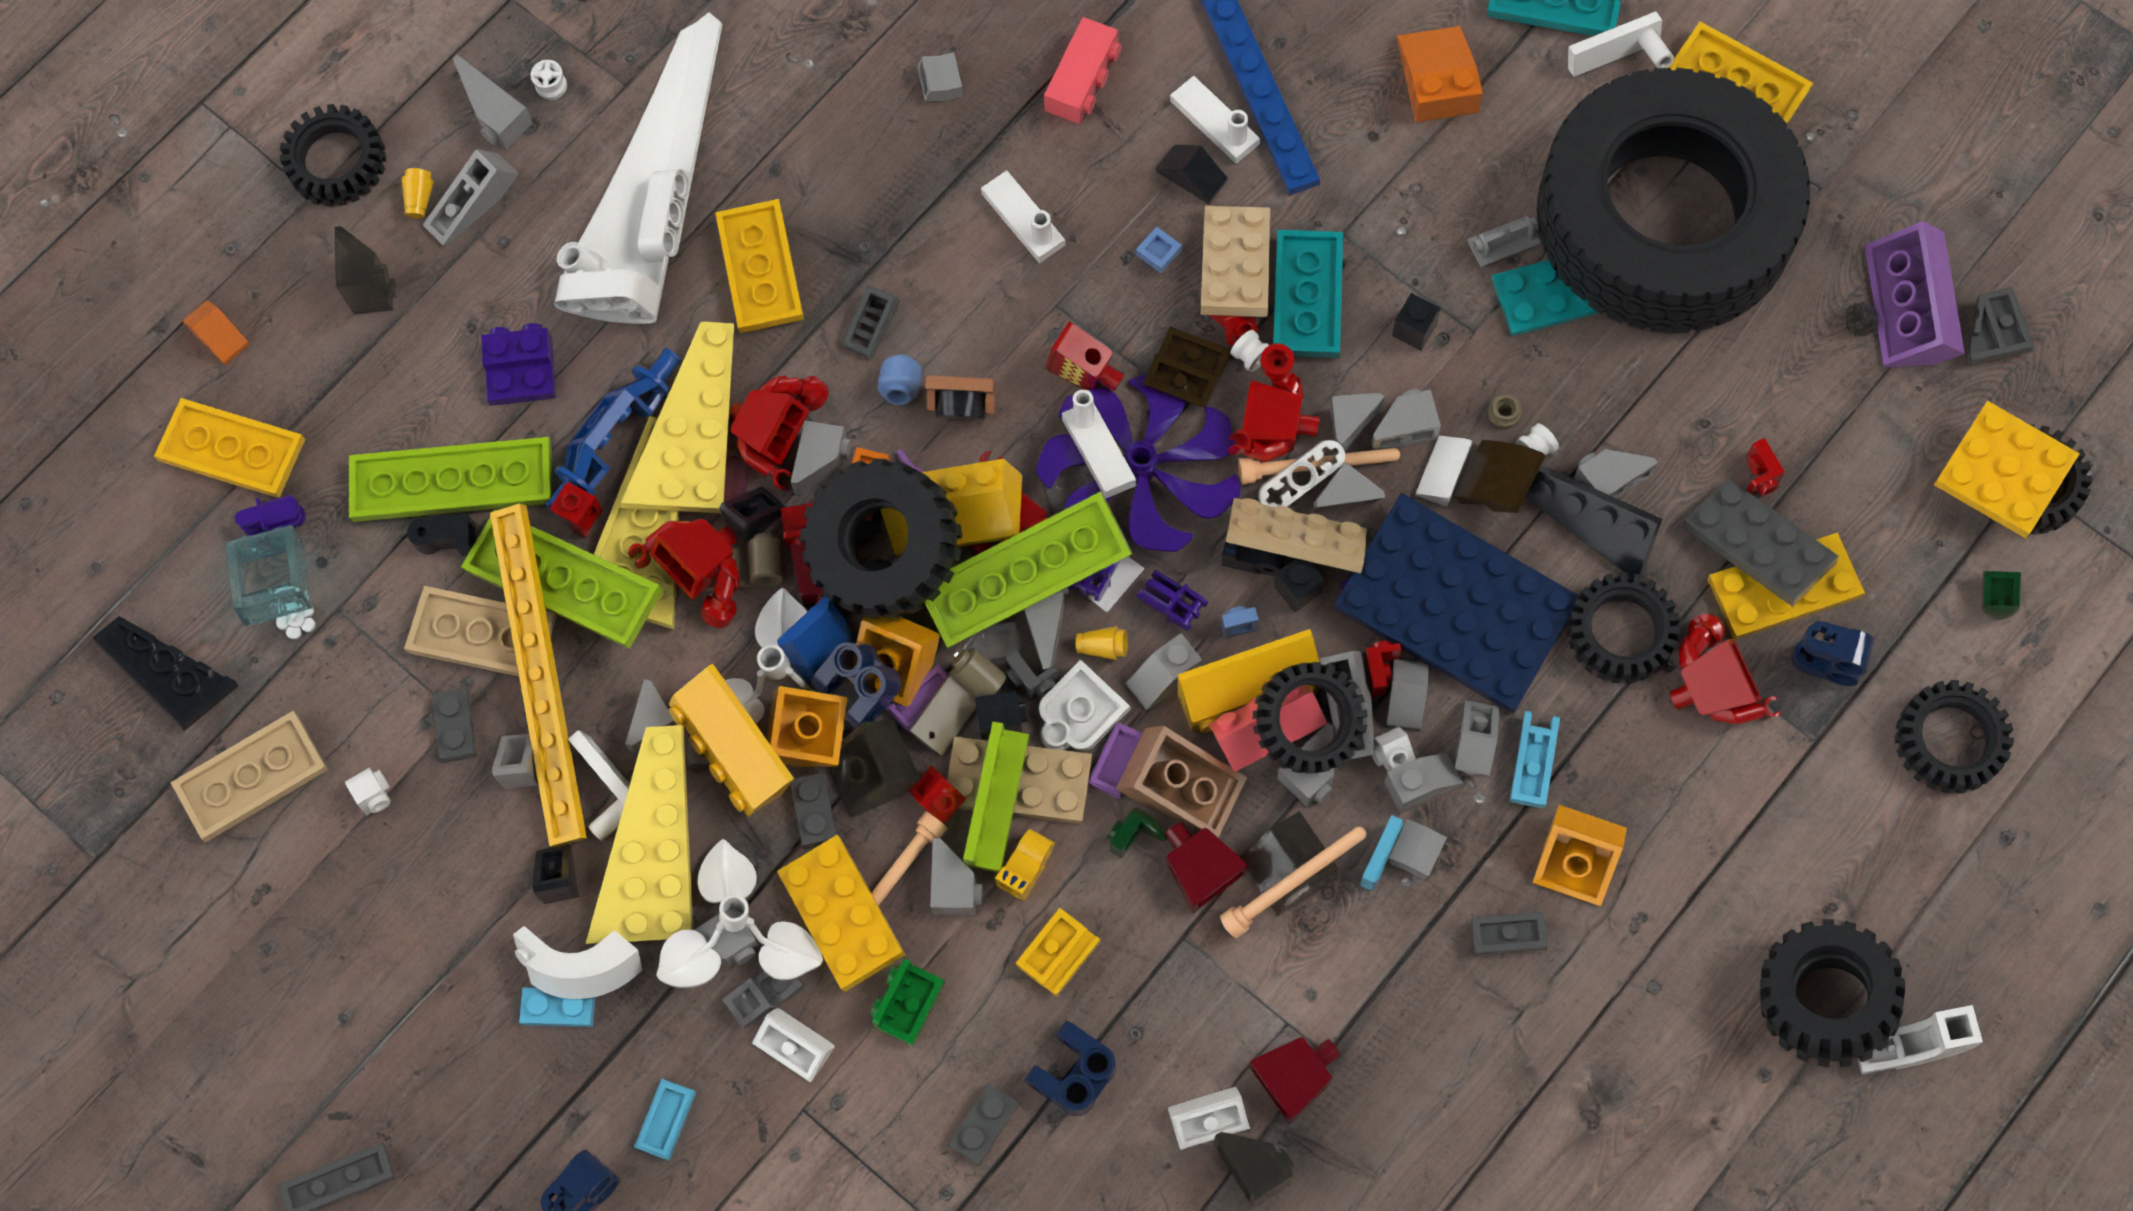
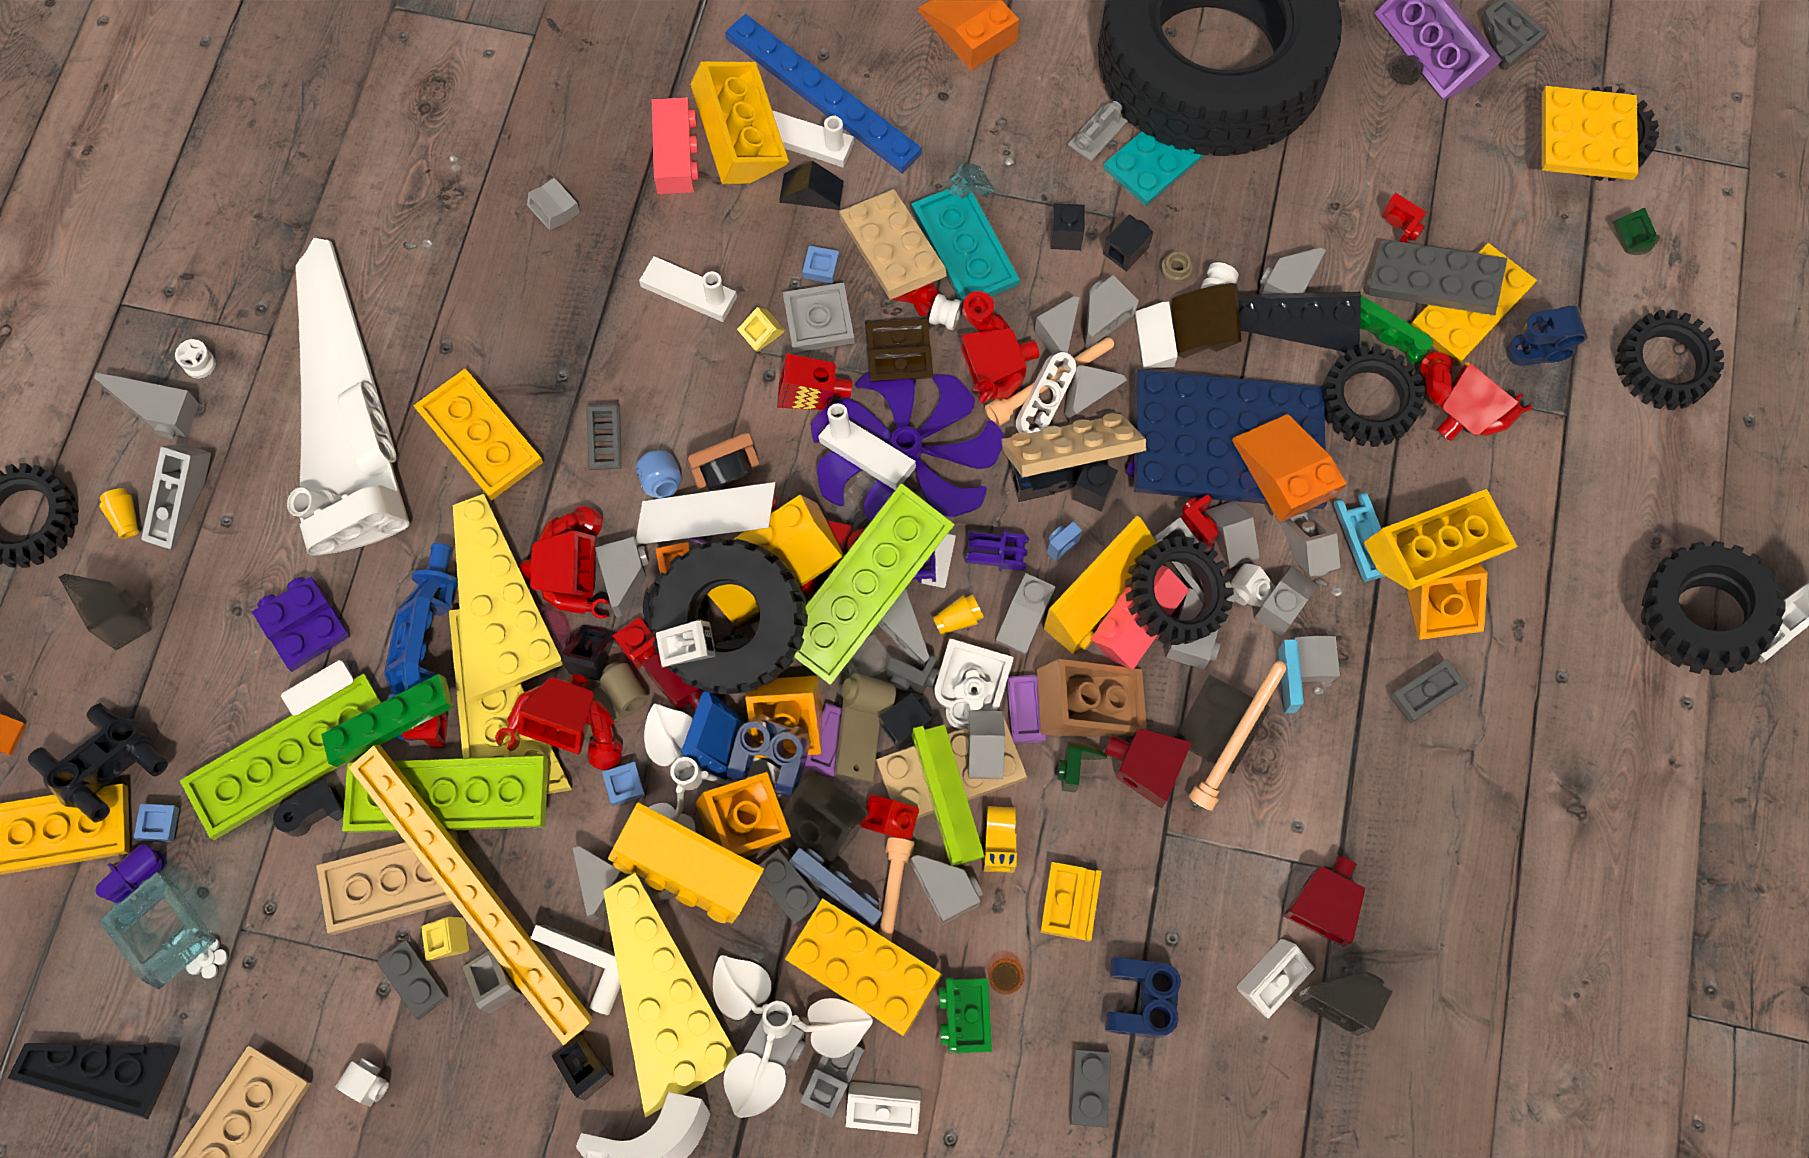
camera: 35 degrees left, 0 degrees up
(290, 405) = (97, 762): none -> black piece
(312, 482) = (156, 823): none -> medium blue plate
(500, 704) = (445, 938): none -> light yellow slope
(504, 430) = (318, 687): none -> white slope
(544, 487) = (387, 720): none -> green plate
(720, 646) = (623, 784): none -> medium blue plate
(827, 544) = (685, 643): none -> white slope
(855, 829) = (836, 886): none -> sand blue plate
(917, 436) = (705, 514): none -> white sticker
(964, 988) = (1006, 976): none -> clear orange tile
(1057, 771) = (986, 744): none -> light grey slope
(1070, 286) = (760, 328): none -> light yellow slope
(1084, 720) = (976, 699): none -> white plate
(1128, 300) = (818, 317): none -> light grey plate
(1155, 74) = (738, 121): none -> yellow slope
(1346, 231) = (968, 179): none -> clear light blue slope
(1468, 364) = (1128, 242): none -> black brick
(1492, 655) = (1289, 467): none -> orange slope
(1599, 797) = (1441, 541): none -> yellow slope
(1681, 572) = (1394, 331): none -> green plate

